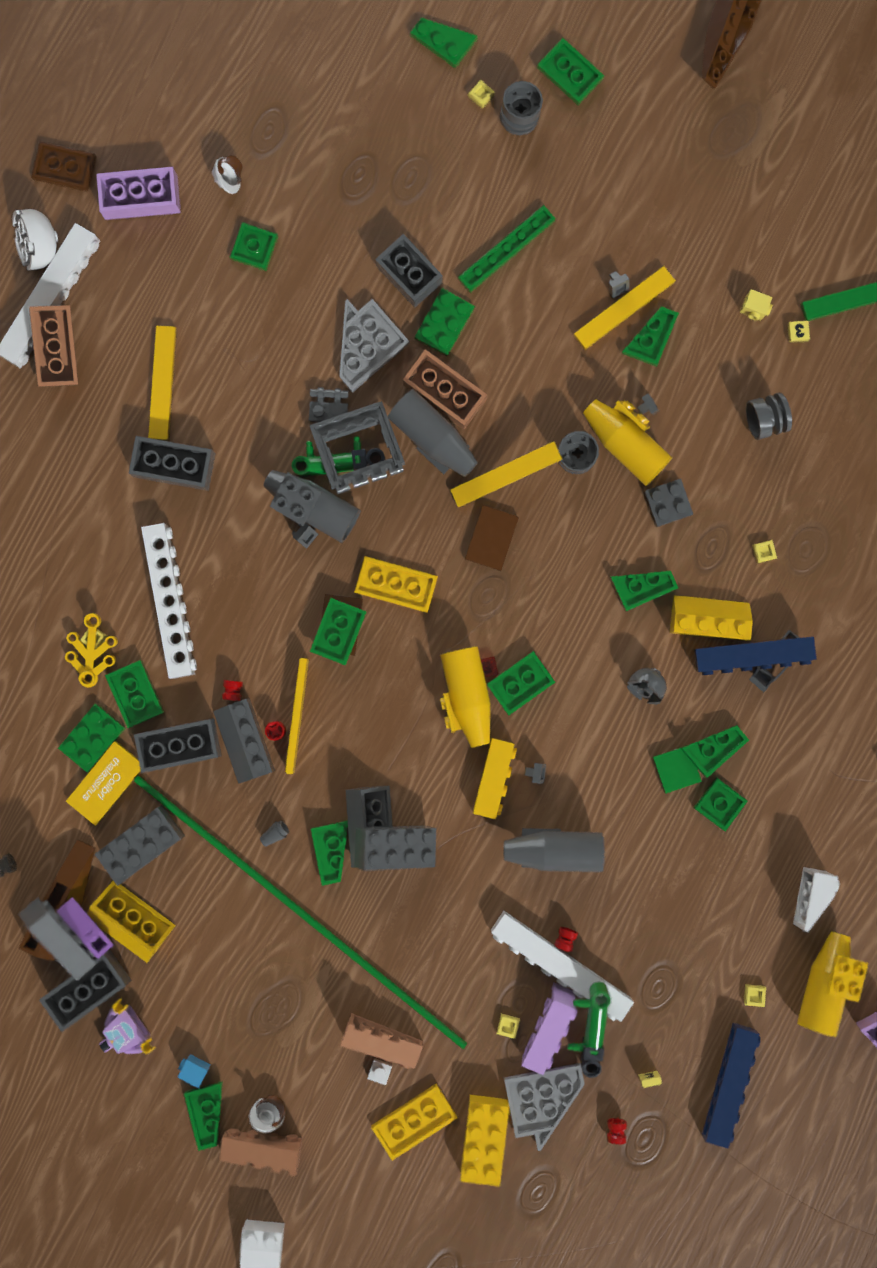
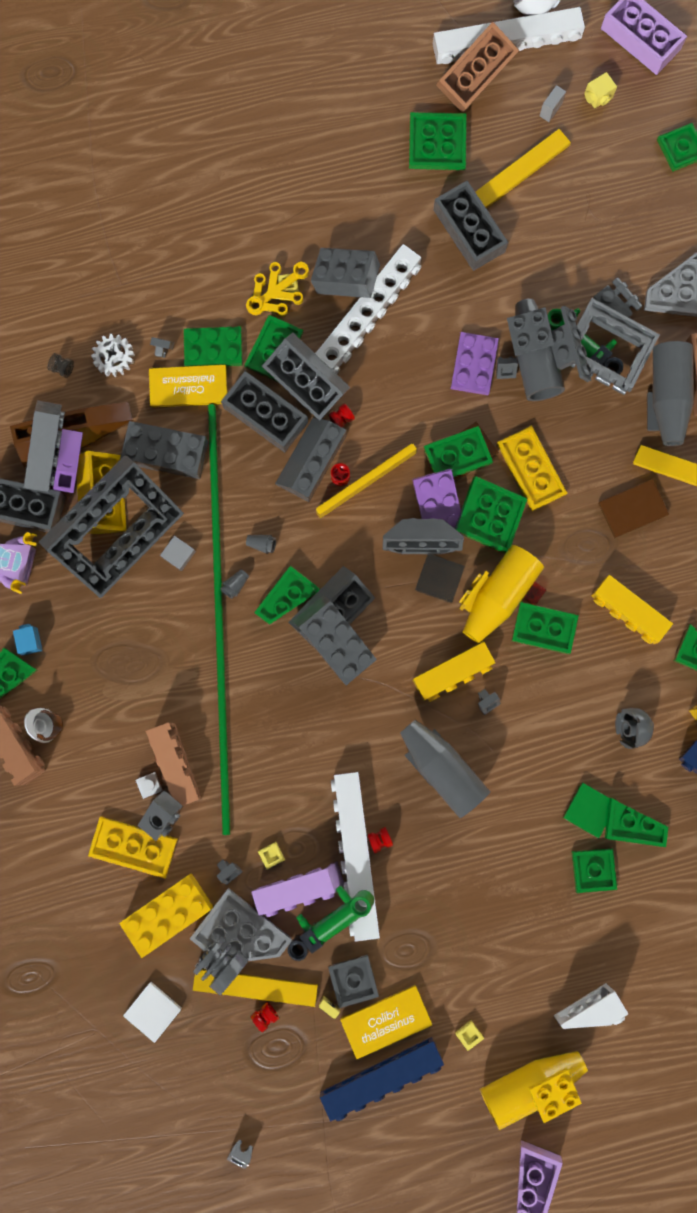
camera: 55 degrees right, 5 degrees down
(26, 814) = (117, 362): none -> white gear
(56, 776) = (161, 346): none -> dark grey tile
(83, 425) = (437, 141): none -> green plate
(125, 590) = (345, 272): none -> dark grey brick
(132, 313) = (552, 103): none -> light grey piece
(155, 267) = (600, 90): none -> light yellow brick
(179, 693) = (305, 376): none -> dark grey brick
(194, 975) = (130, 545): none -> dark grey brick
(227, 902) = (178, 553): none -> light grey piece
(280, 554) = (474, 363): none -> medium lavender plate
(287, 880) = (234, 584): none -> dark grey cone
(331, 480) = (568, 346): none -> dark grey bracket
(360, 678) = (437, 497): none -> medium lavender plate
(375, 714) = (422, 537): none -> dark grey wedge
(403, 648) = (490, 514): none -> green plate
(410, 1084) = (160, 815): none -> dark grey brick
(416, 725) = (439, 578): none -> clear smoke tile
(492, 1068) = (228, 871): none -> dark grey tile
(543, 1207) = (152, 1012): none -> white tile
(554, 1135) = (220, 965): none -> dark grey wheel
(563, 608) = (632, 610): none -> yellow brick
(590, 1119) = (263, 989): none -> yellow tile
(647, 1045) = (353, 981): none -> dark grey plate
(694, 1046) = (386, 1022): none -> yellow tile
(697, 1233) = (240, 1158): none -> dark grey tile

